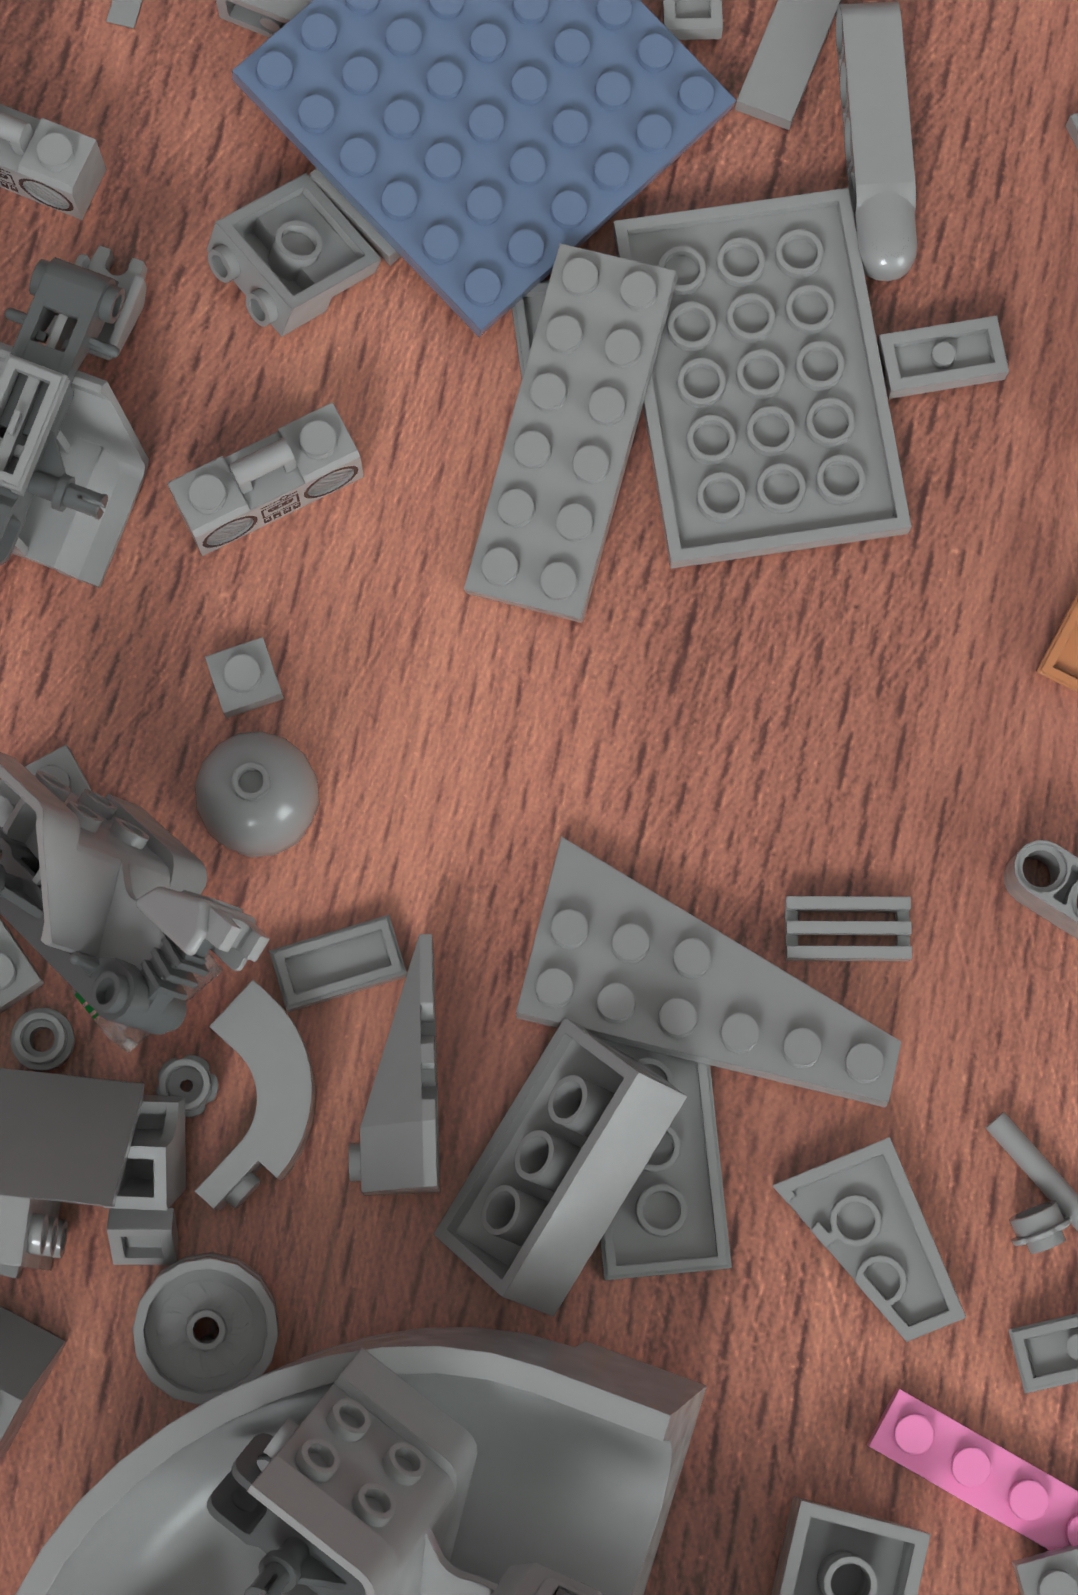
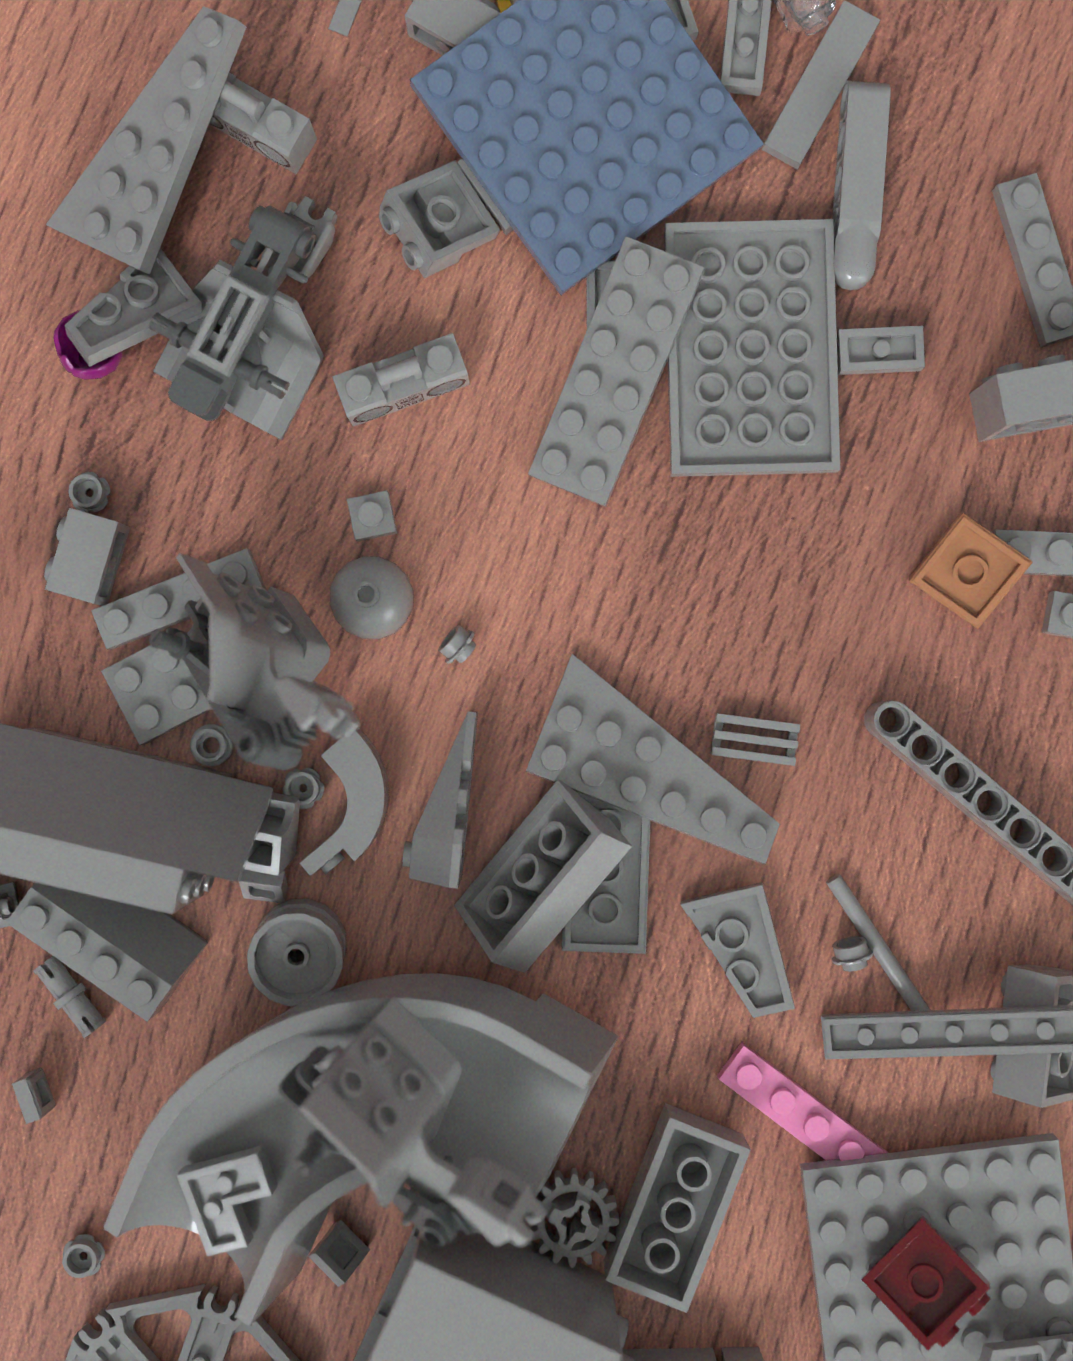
camera: 10 degrees right, 10 degrees up
(338, 963) = (412, 719): light grey tile -> none
(392, 845) = (457, 645): none -> light grey plate

